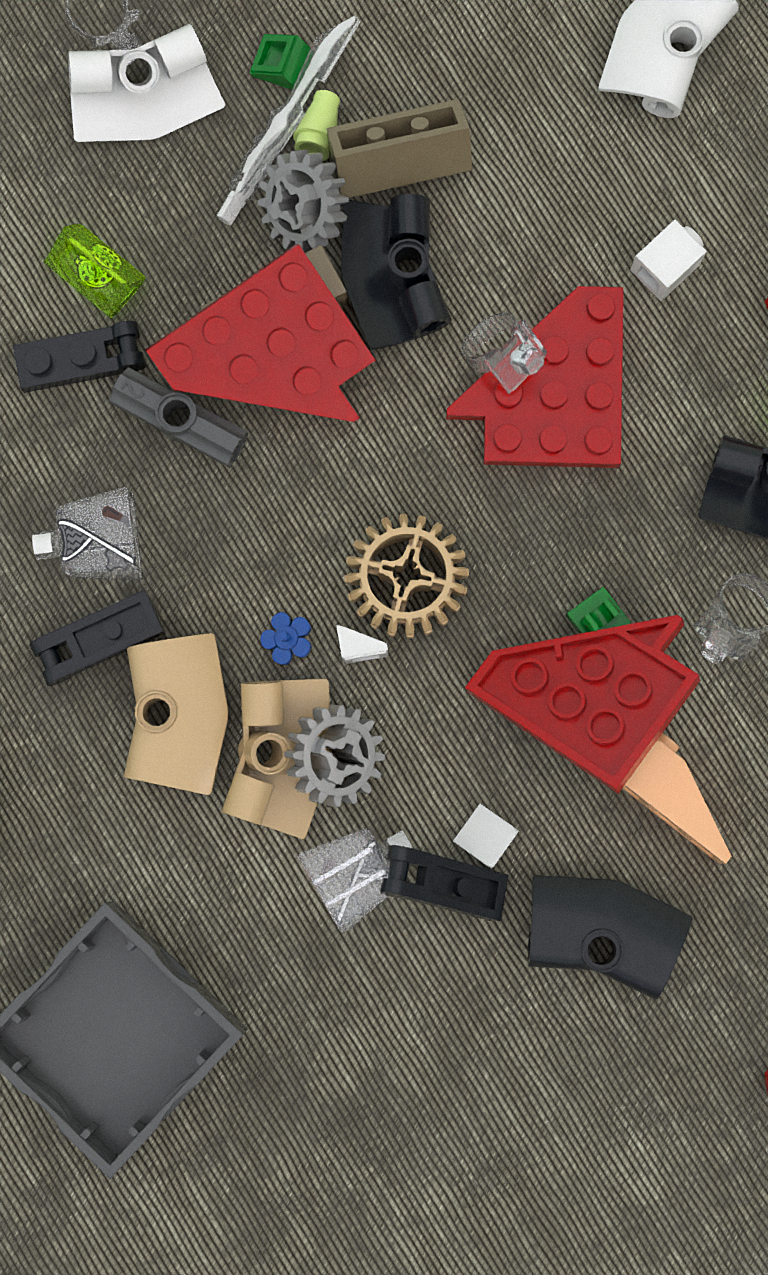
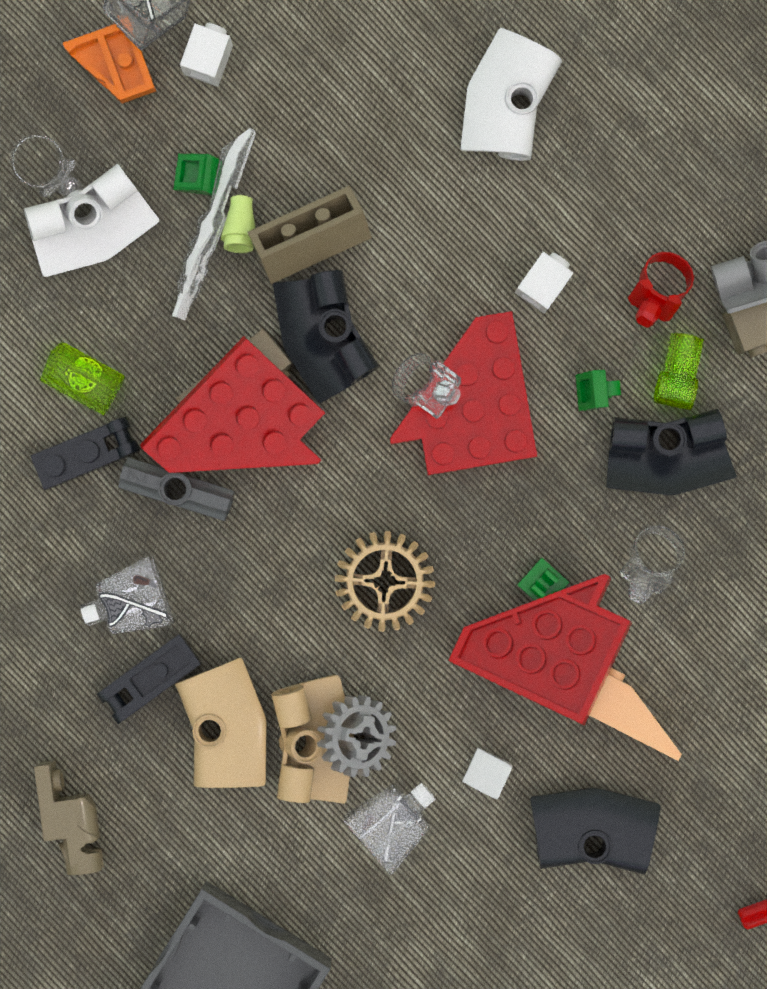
camera: 15 degrees left, 5 degrees up
(287, 638) = (299, 647): blue plant -> none
(302, 200) = (240, 293): light grey gear -> none
(359, 647) = (358, 645): white slope -> none
(445, 883) = (464, 819): black plate -> none
(705, 398) = (595, 390): none -> green tile

